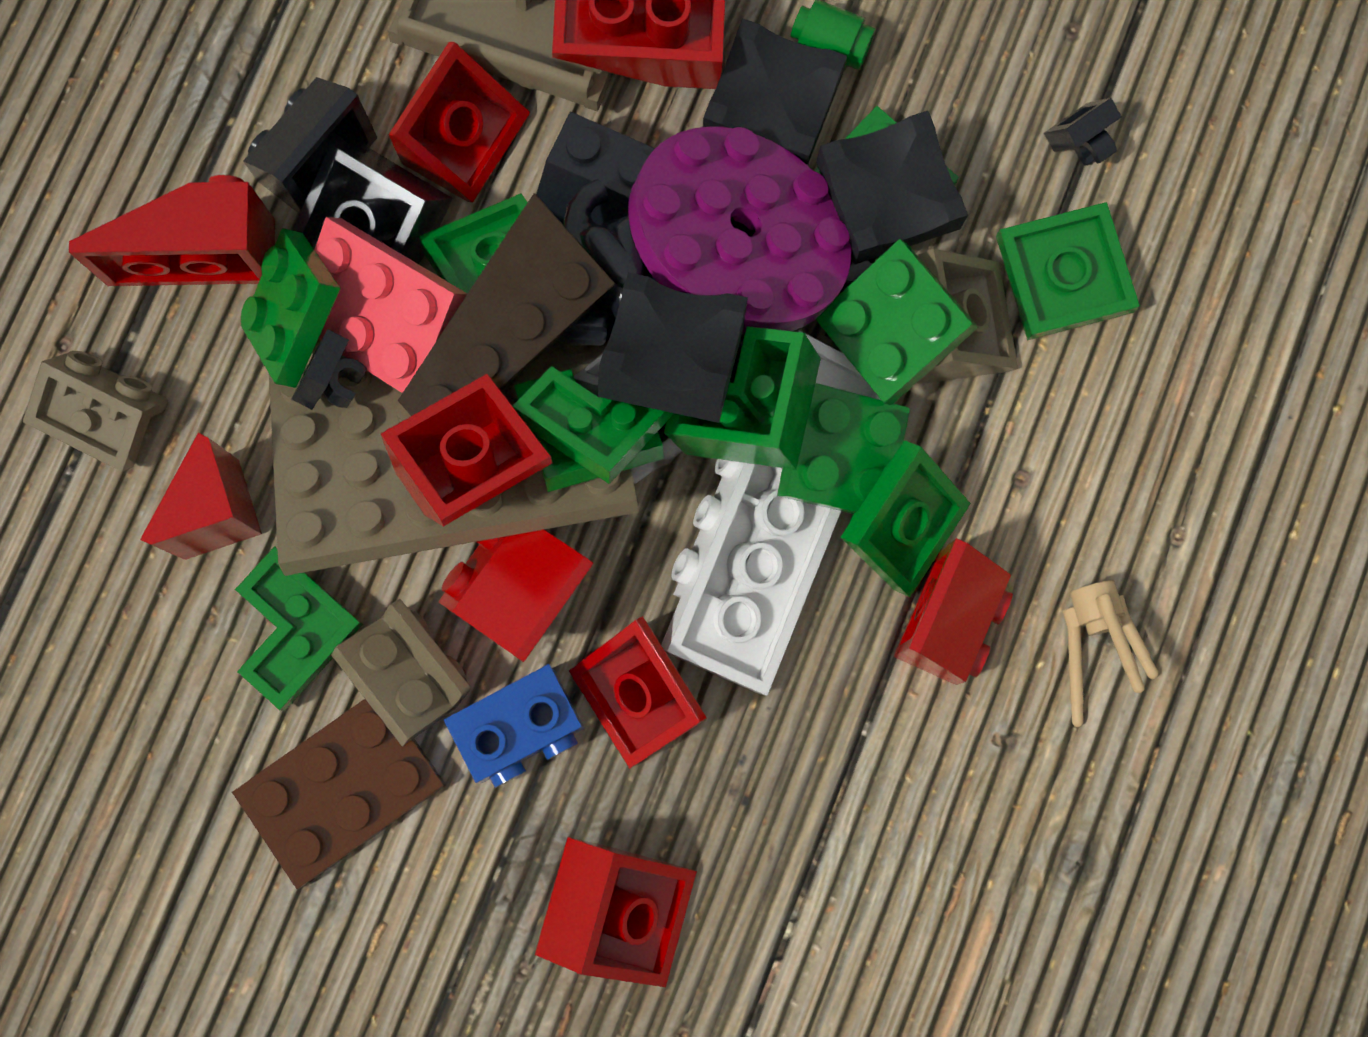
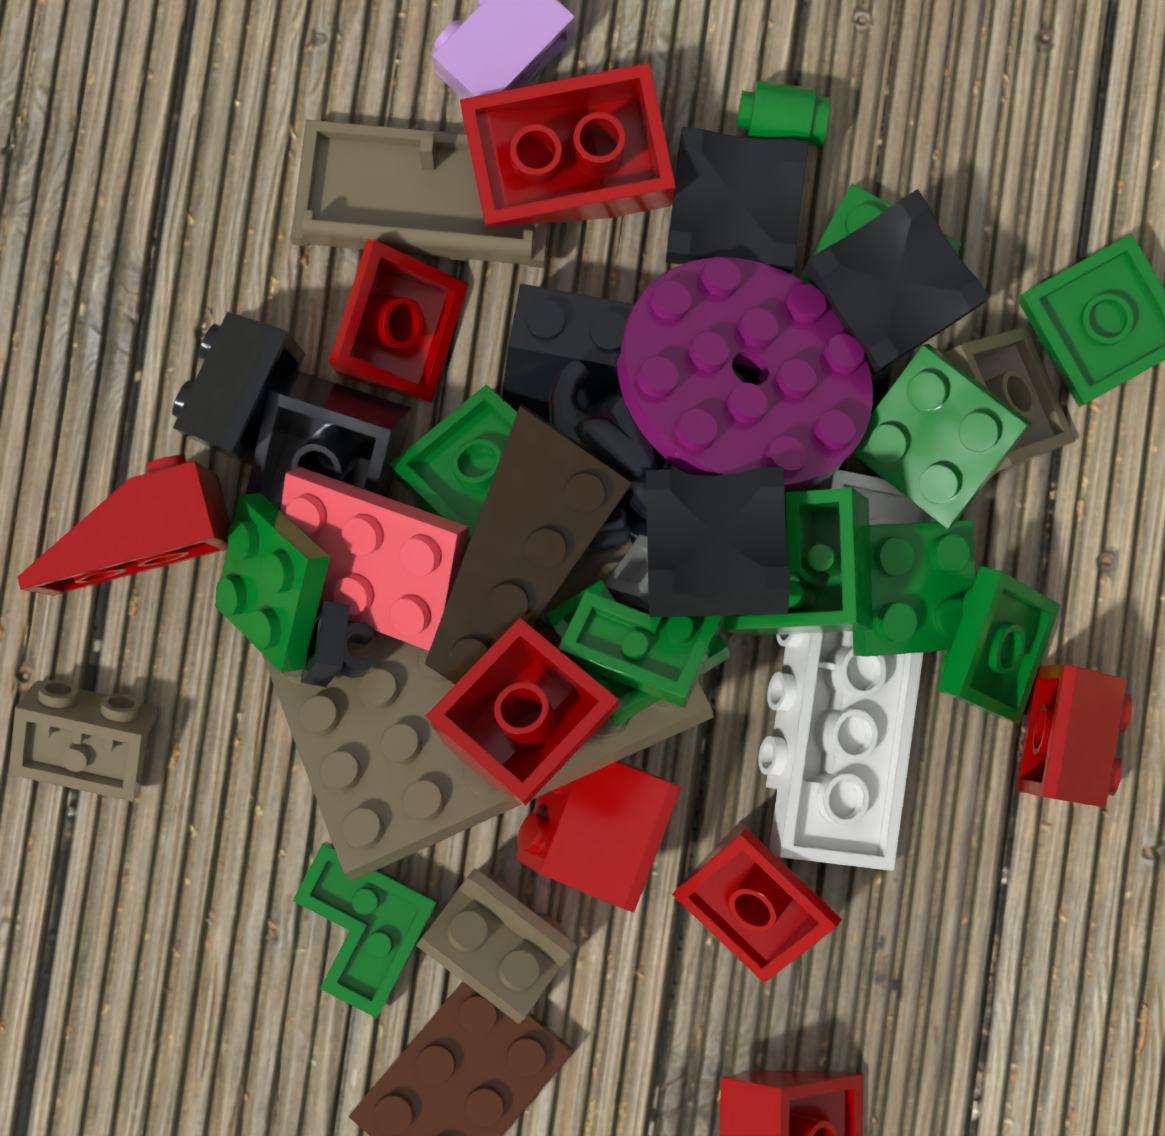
camera: 10 degrees left, 5 degrees up
(204, 504) = (240, 818): red slope -> none
(514, 726) = (634, 972): blue brick -> none
(1085, 131) = (1088, 156): black tile -> none

